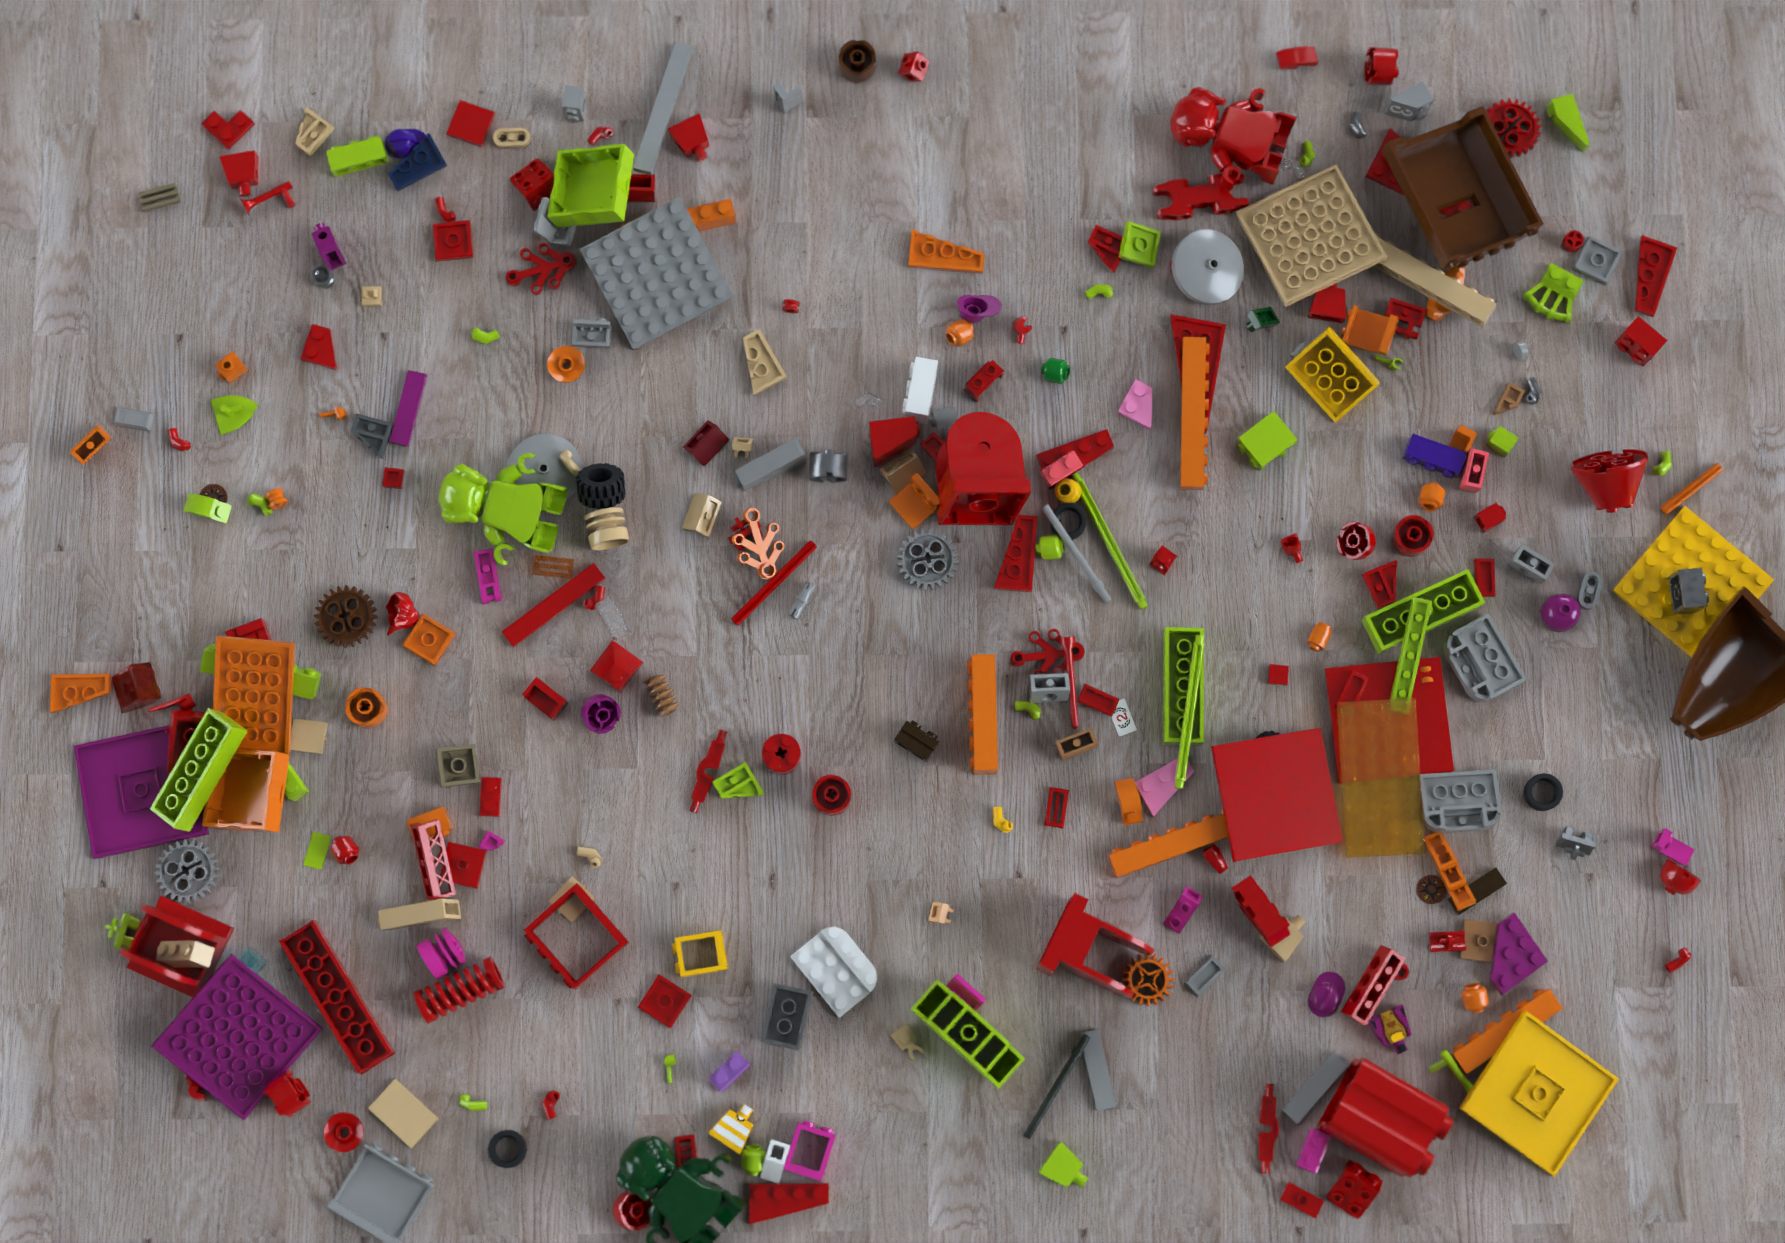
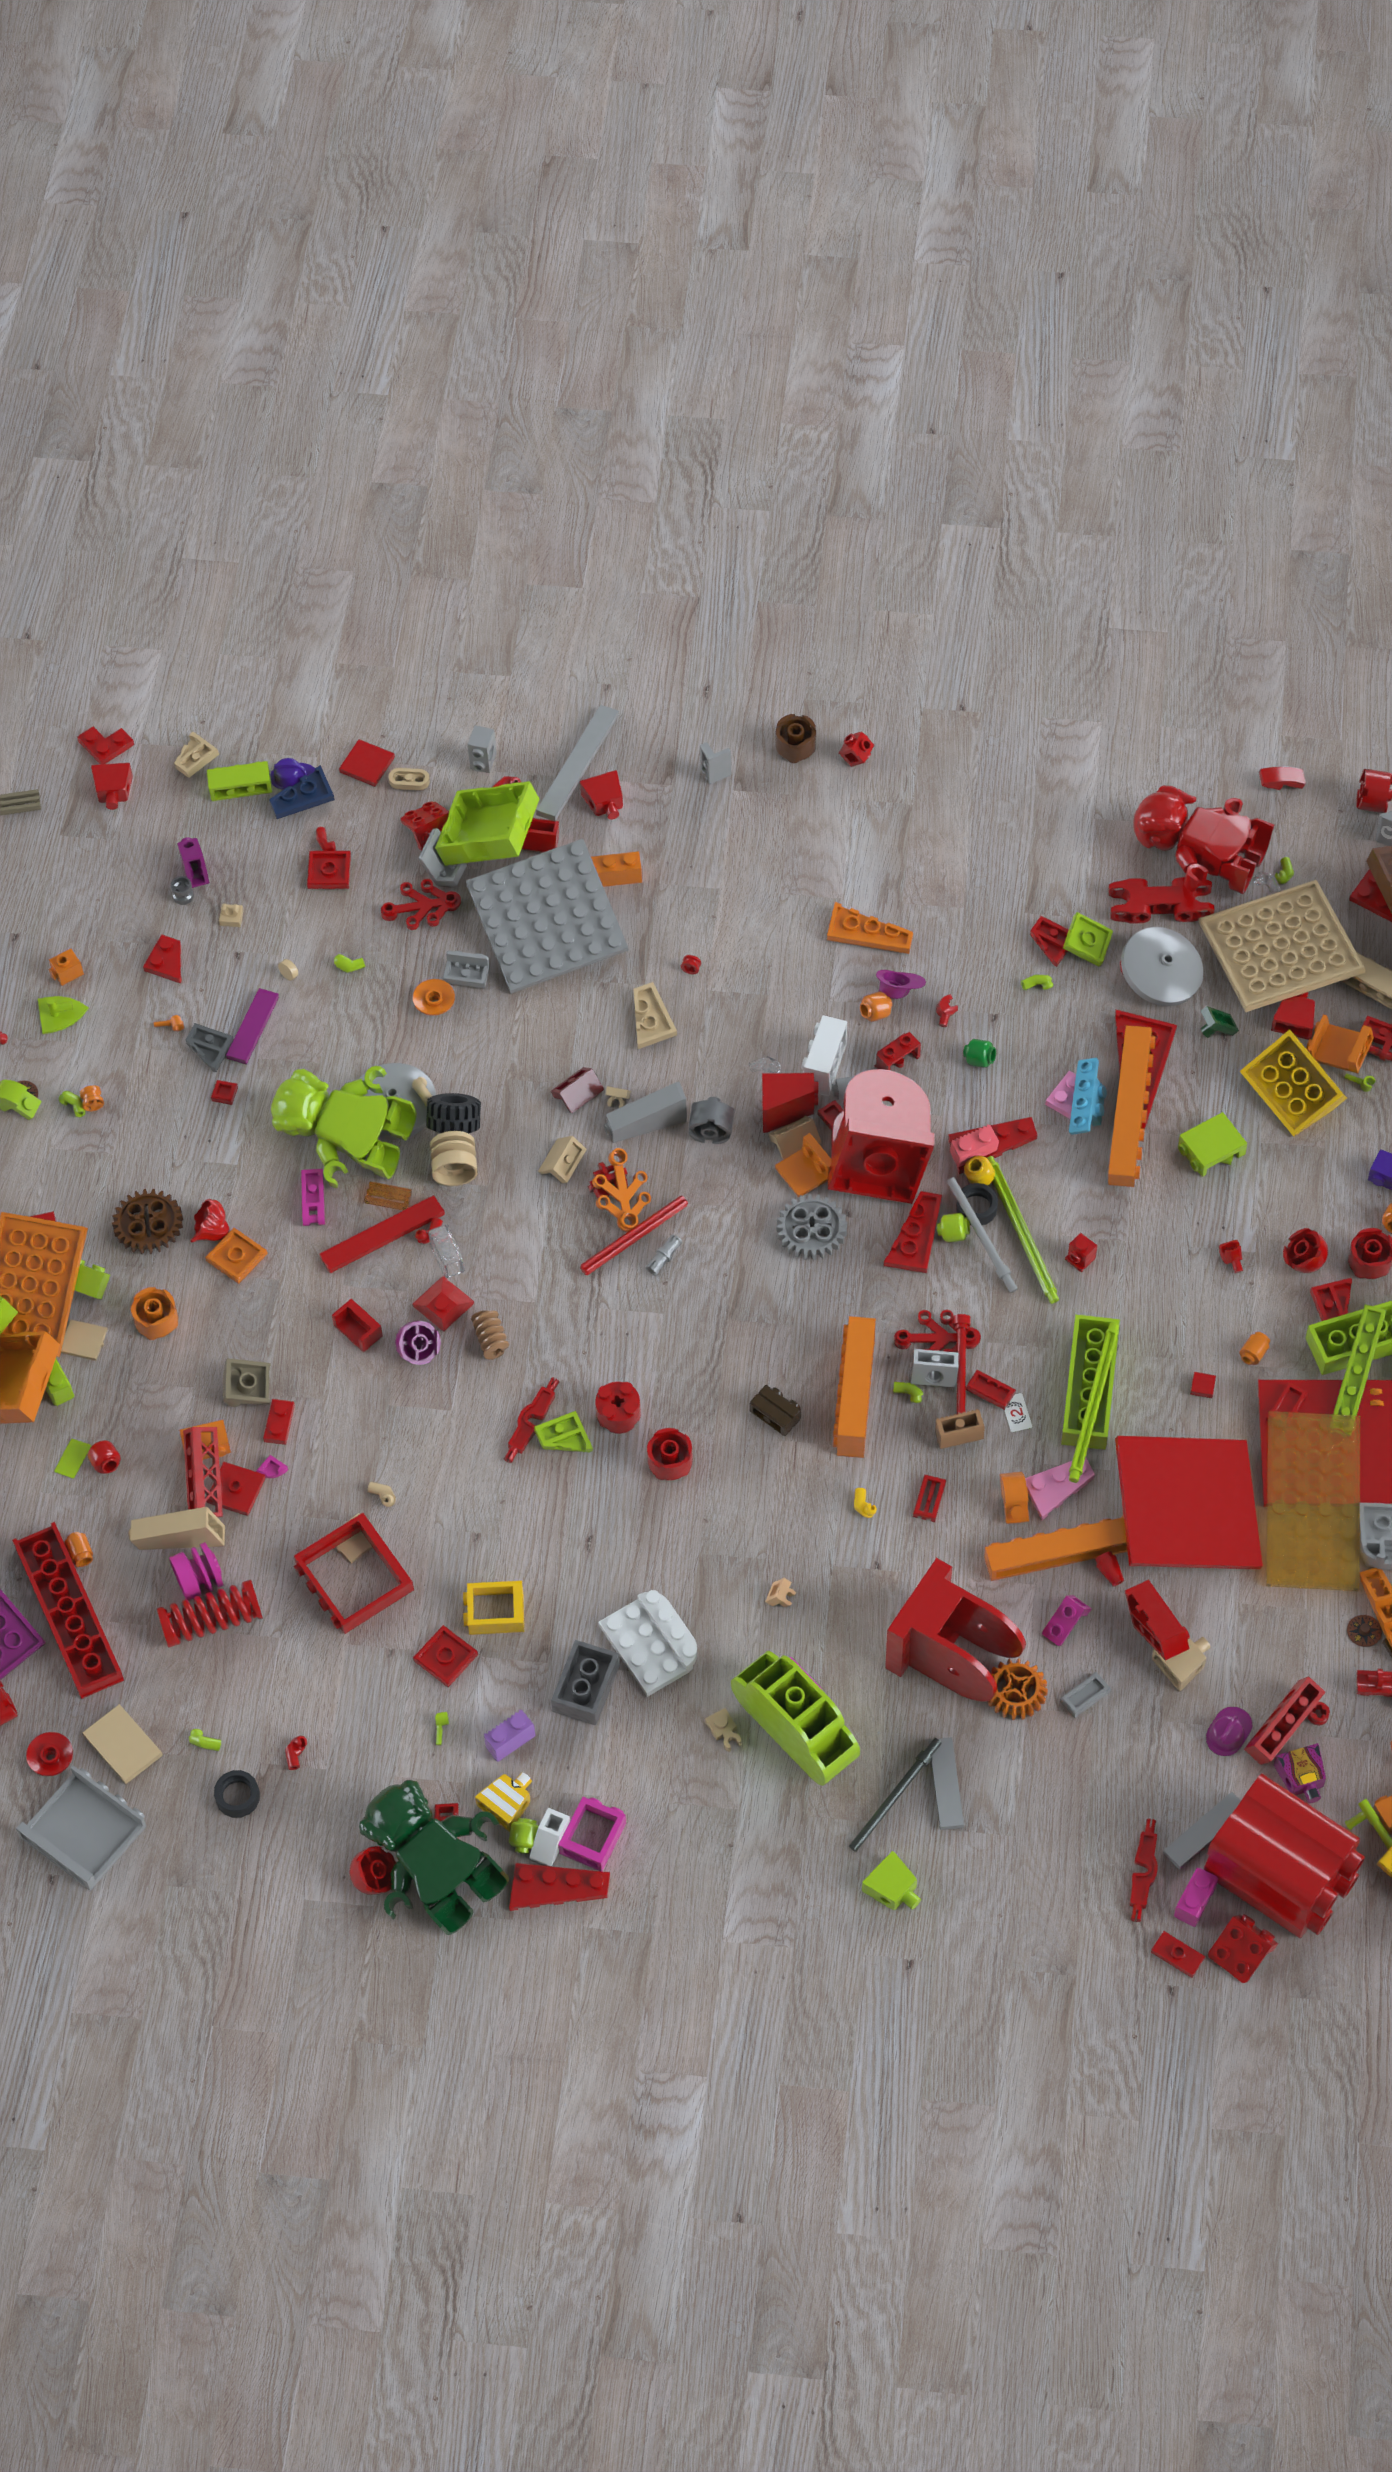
camera: 10 degrees right, 20 degrees down
(281, 189) = (153, 806): red piece -> none
(337, 939) = (79, 1549): none -> orange brick
(431, 348) = (288, 969): none -> tan tile
(1154, 407) = (1087, 1098): none -> medium azure bracket
(1355, 126) = (1342, 849): flat silver arm -> none

